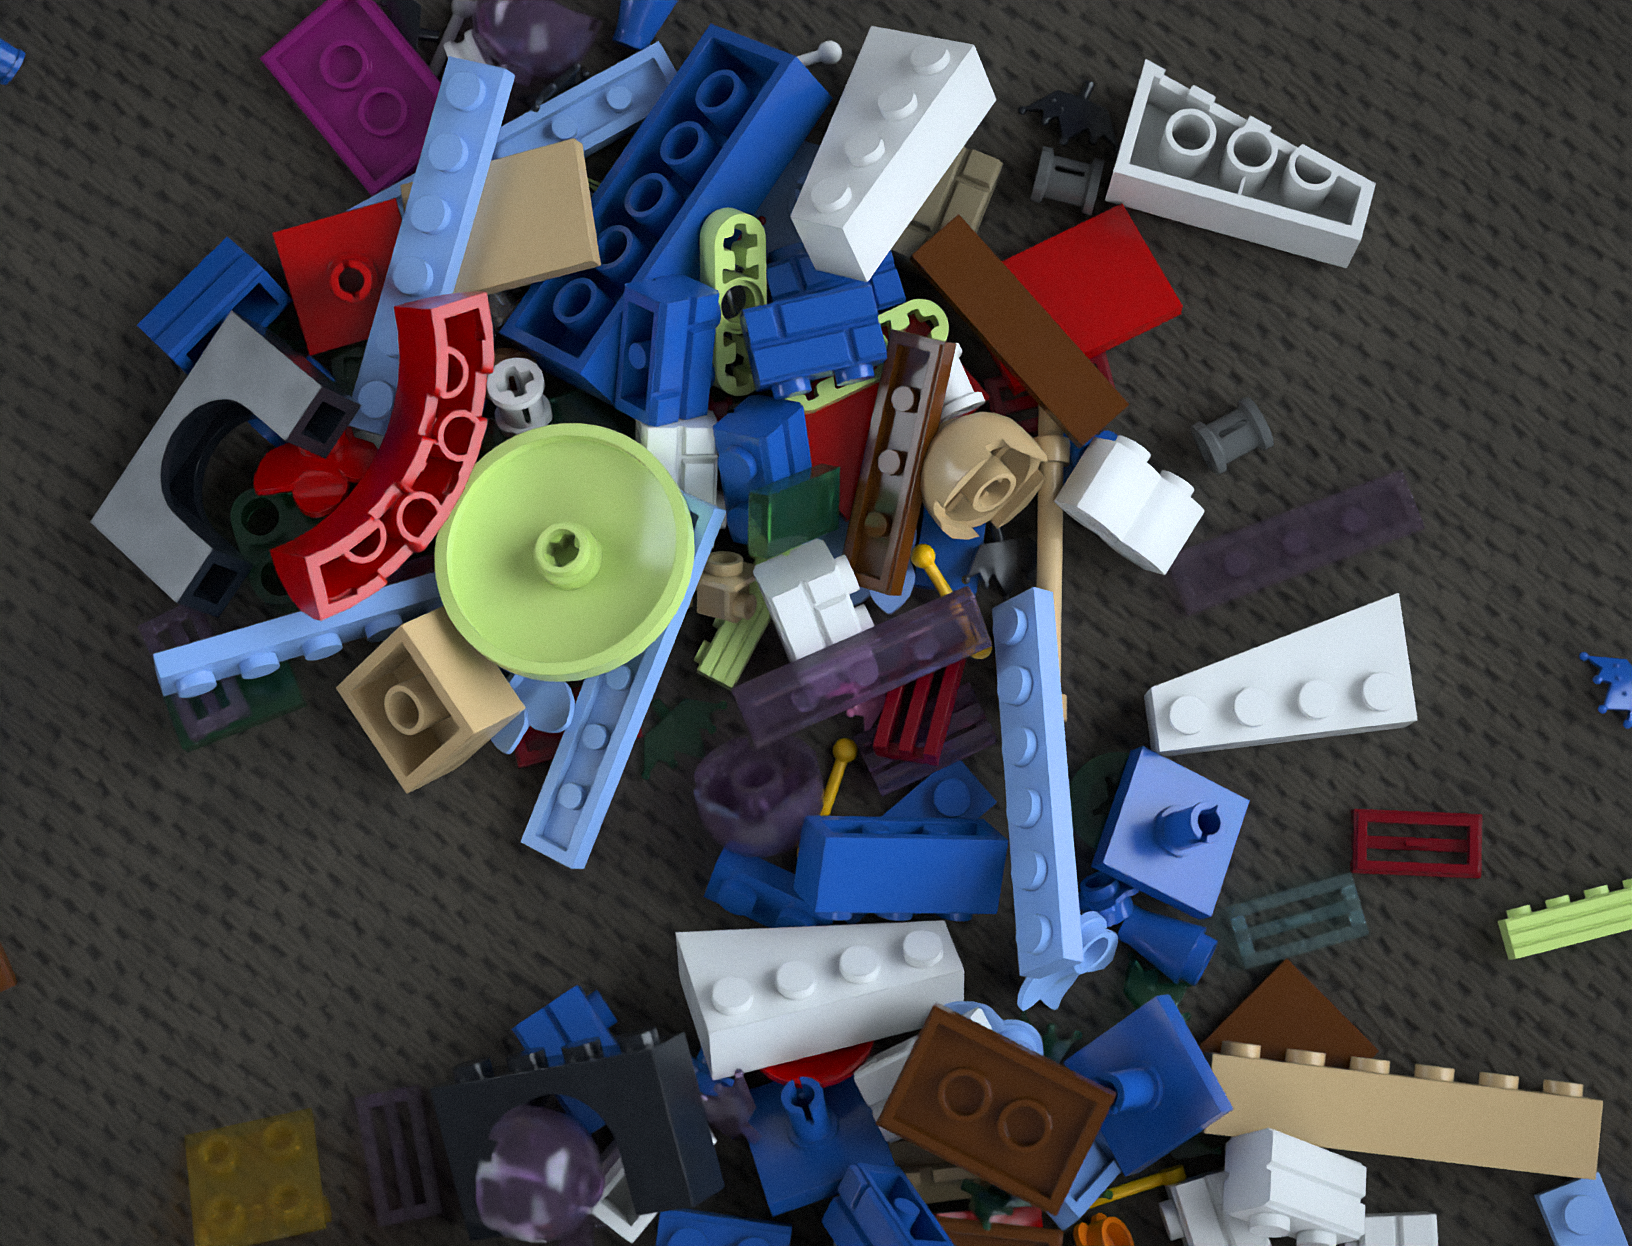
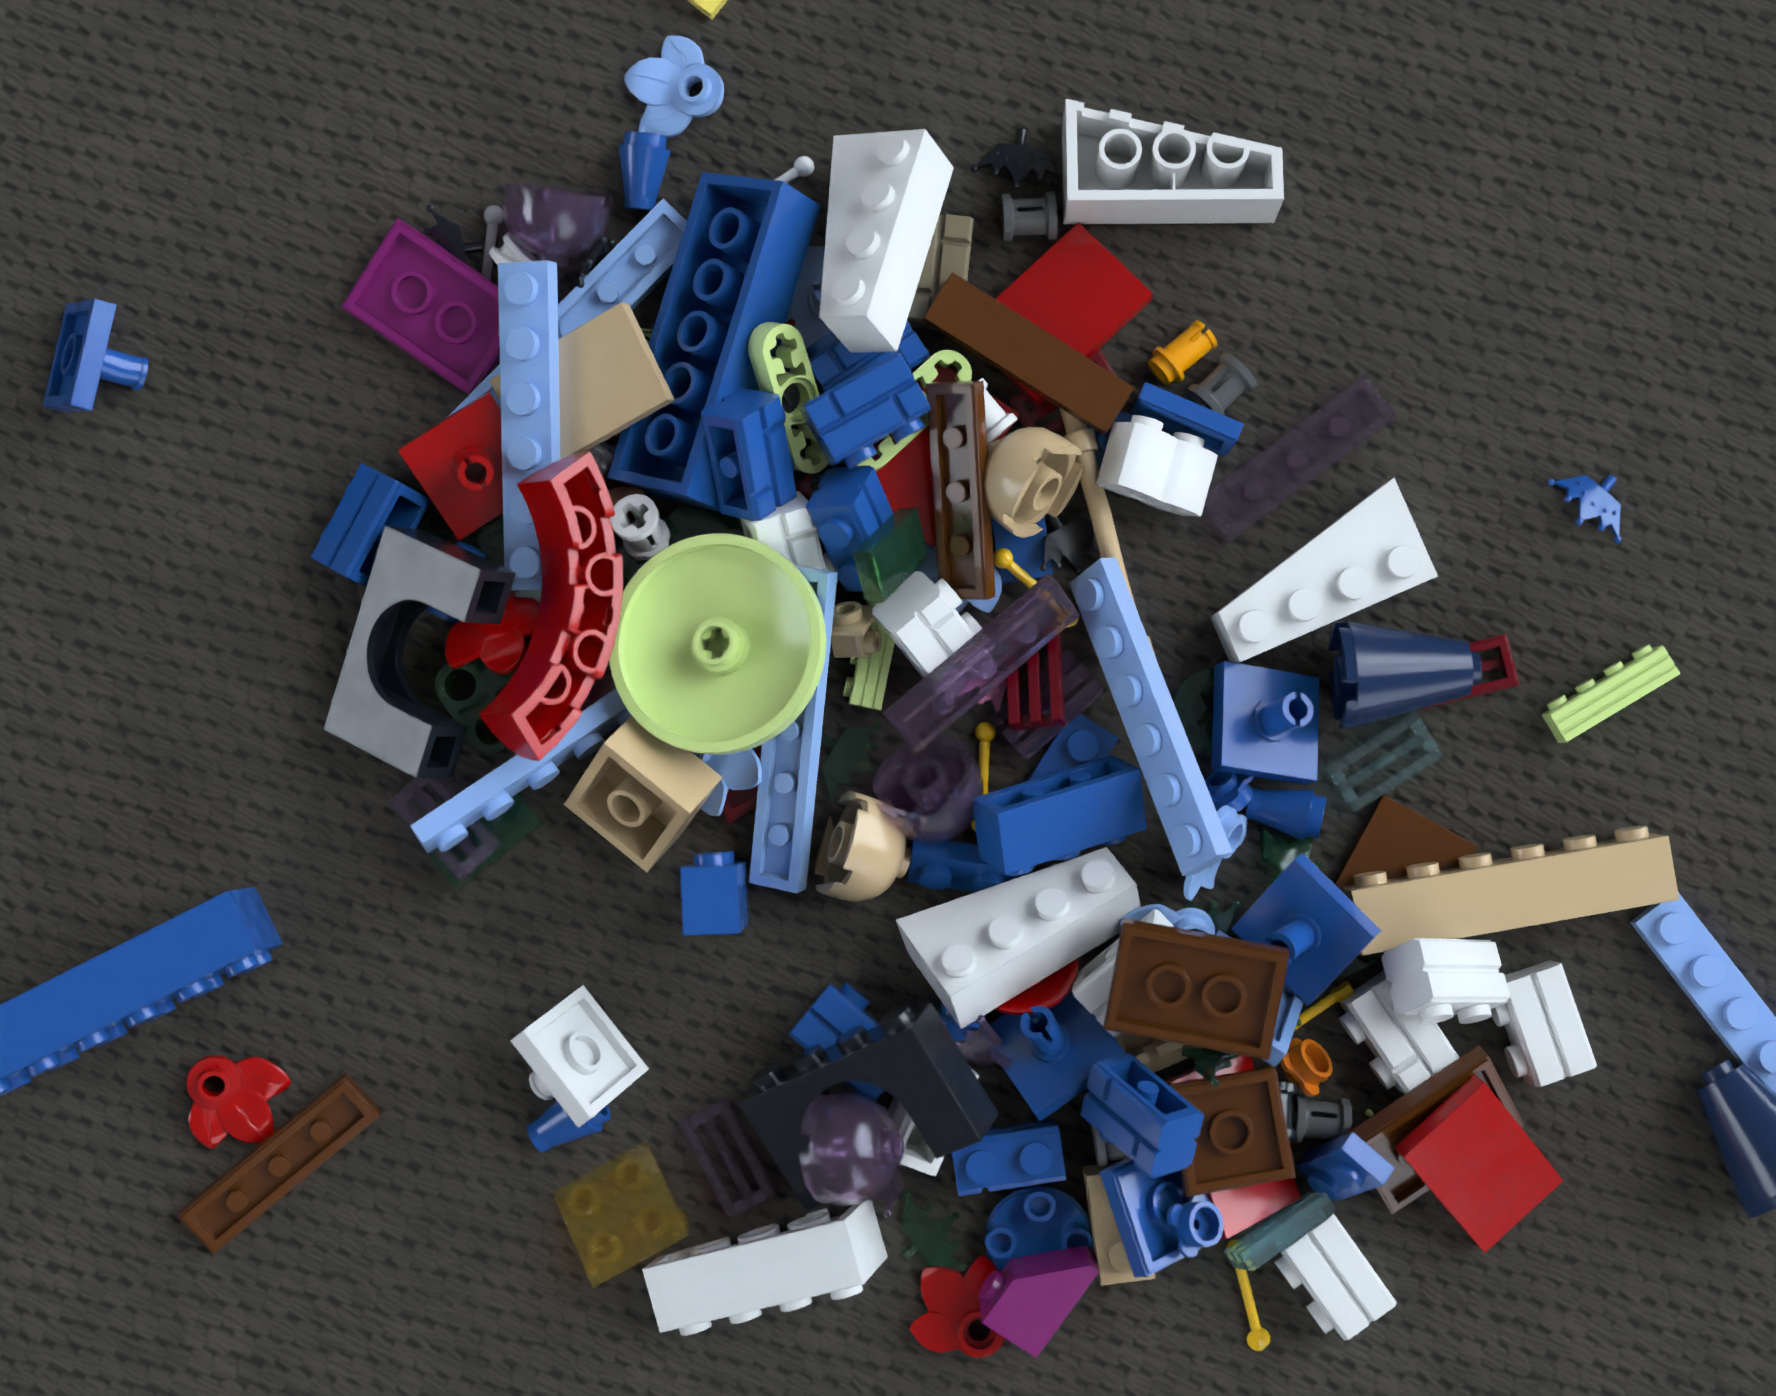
camera: 20 degrees left, 5 degrees up
(232, 1053) = (556, 1127): none -> blue cone
(262, 982) = (578, 1057): none -> white tile
(475, 836) = (714, 894): none -> blue brick
(660, 843) = (861, 852): none -> tan cylinder
(1181, 456) = (1188, 417): none -> blue tile
(1197, 384) = (1172, 361): none -> light orange pin
(1338, 817) = (1395, 672): none -> dark blue cone

